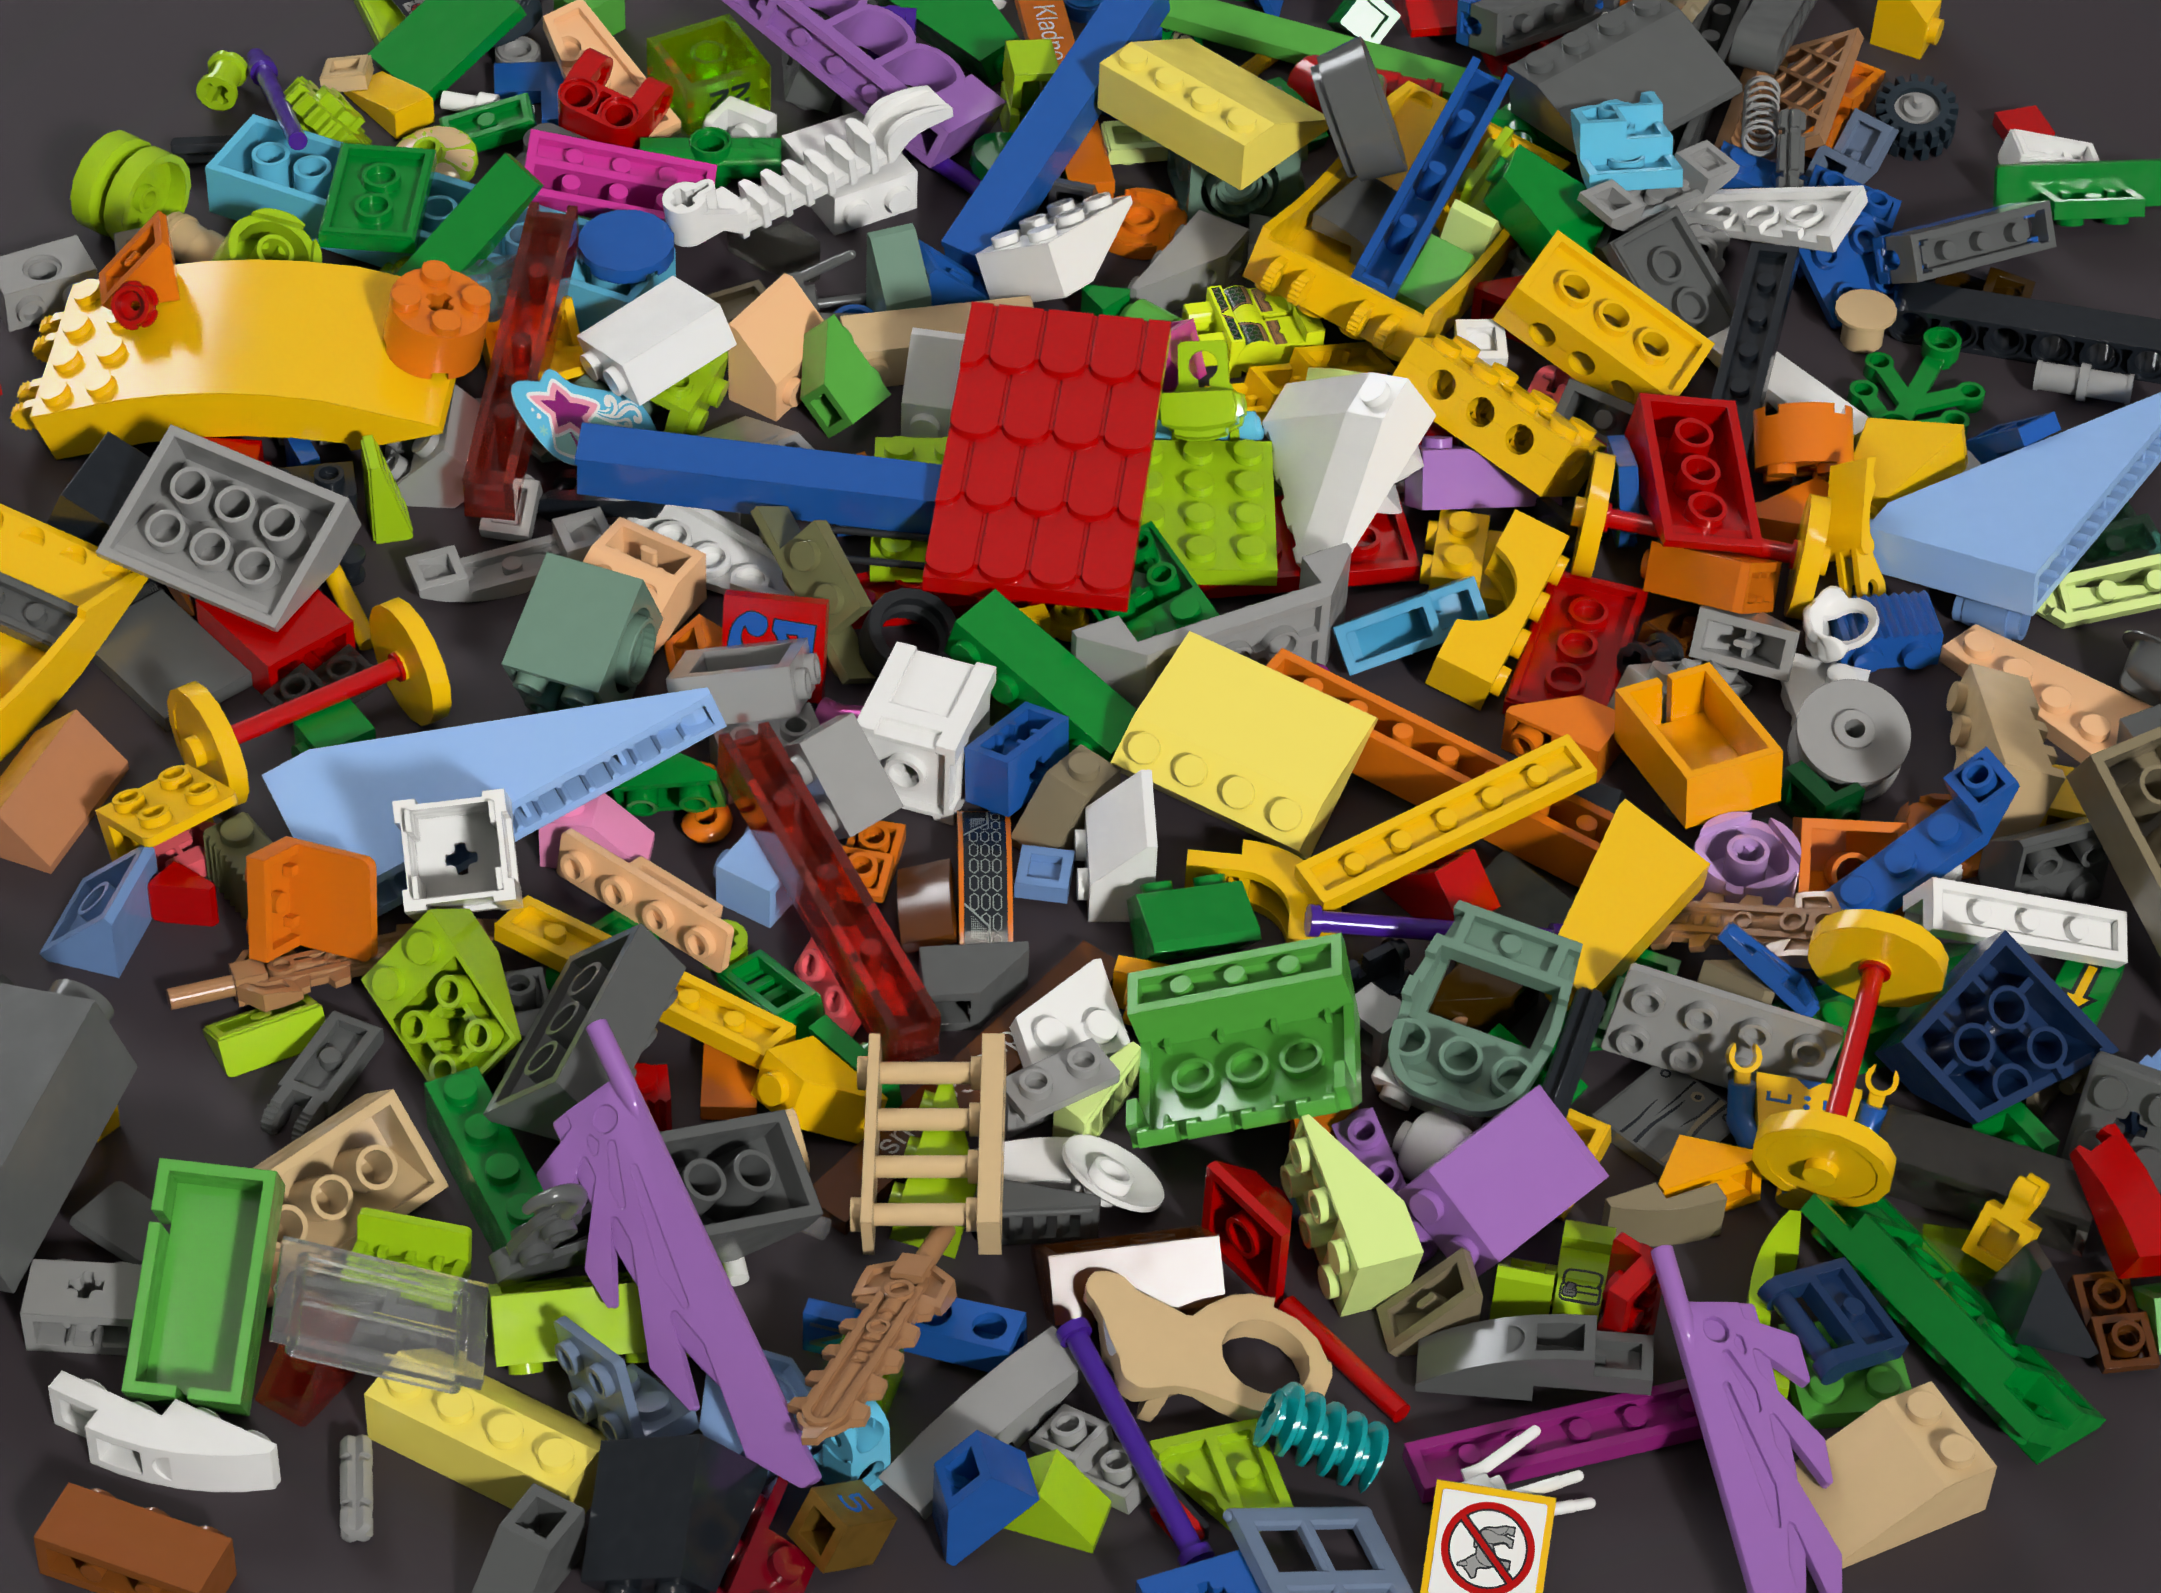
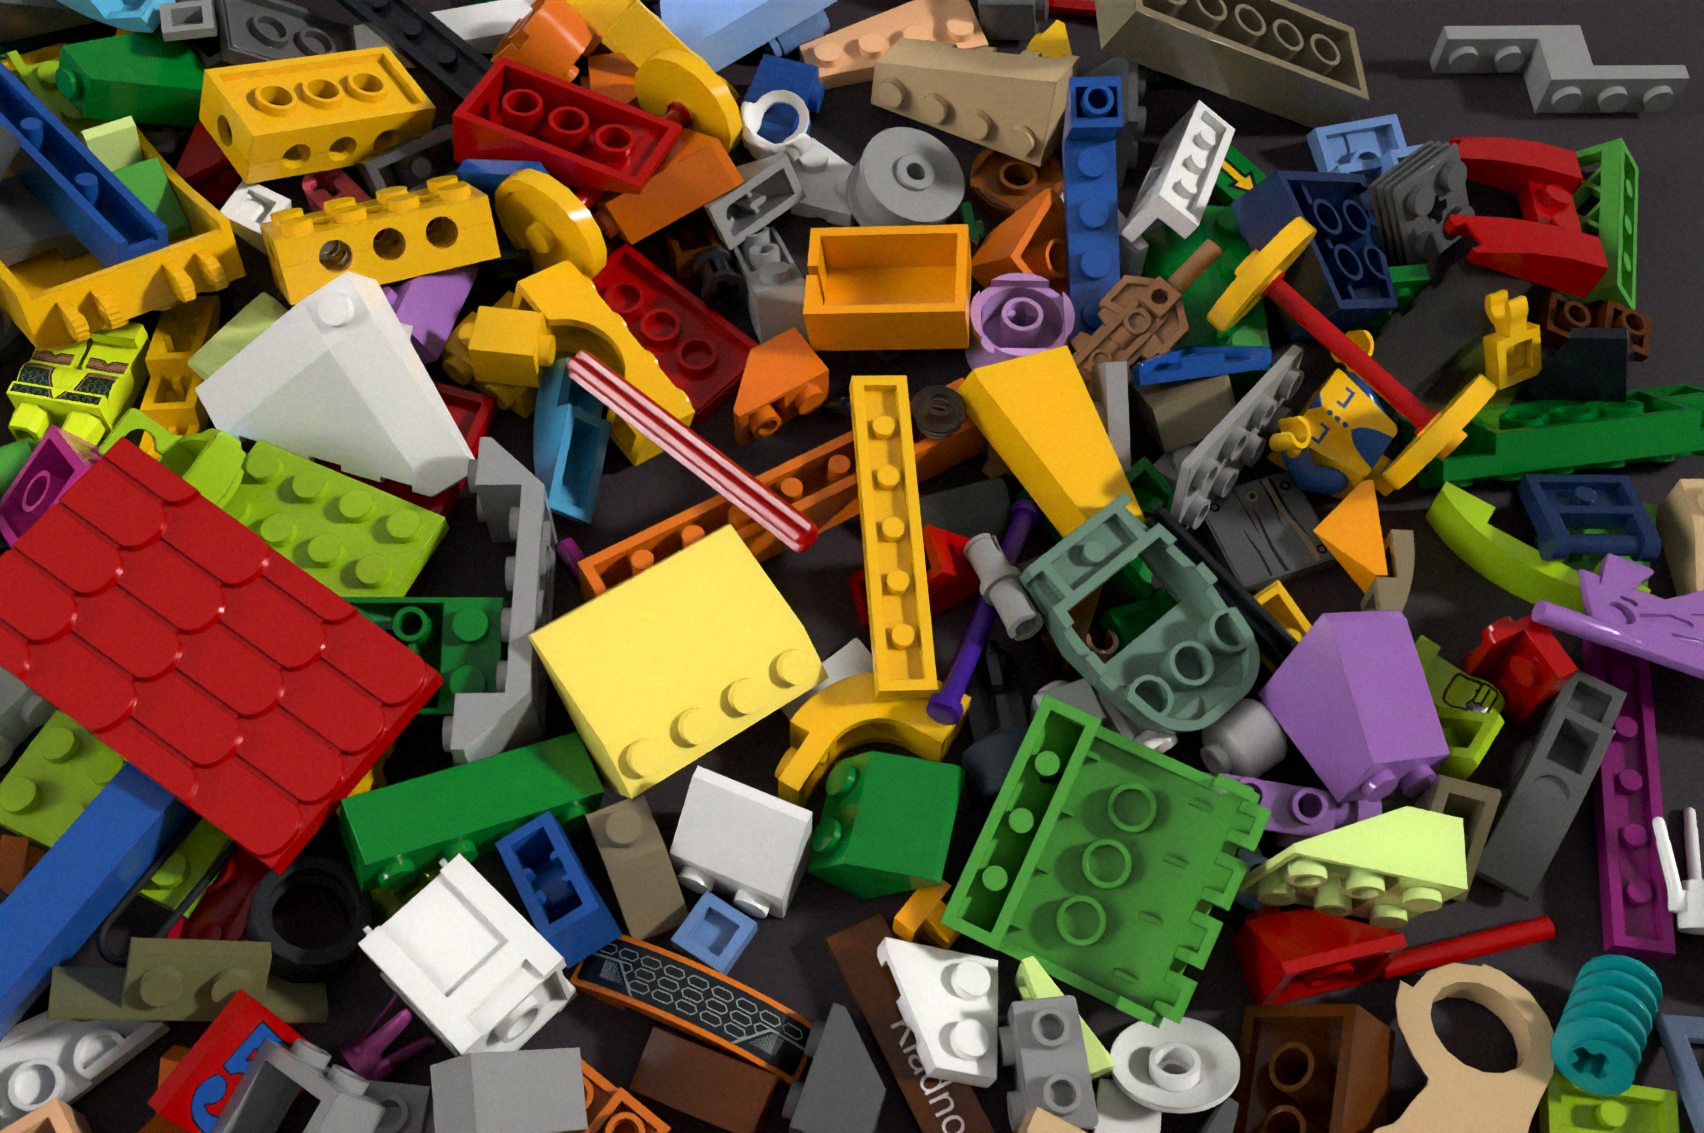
camera: 65 degrees left, 15 degrees up
(1431, 674) = (693, 452): none -> axle
(1442, 915) = (1002, 587): none -> light grey pin
(1456, 536) = (510, 346): none -> yellow brick
(1588, 815) = (933, 422): none -> clear smoke plate
(1684, 937) = (1112, 406): none -> light grey plate

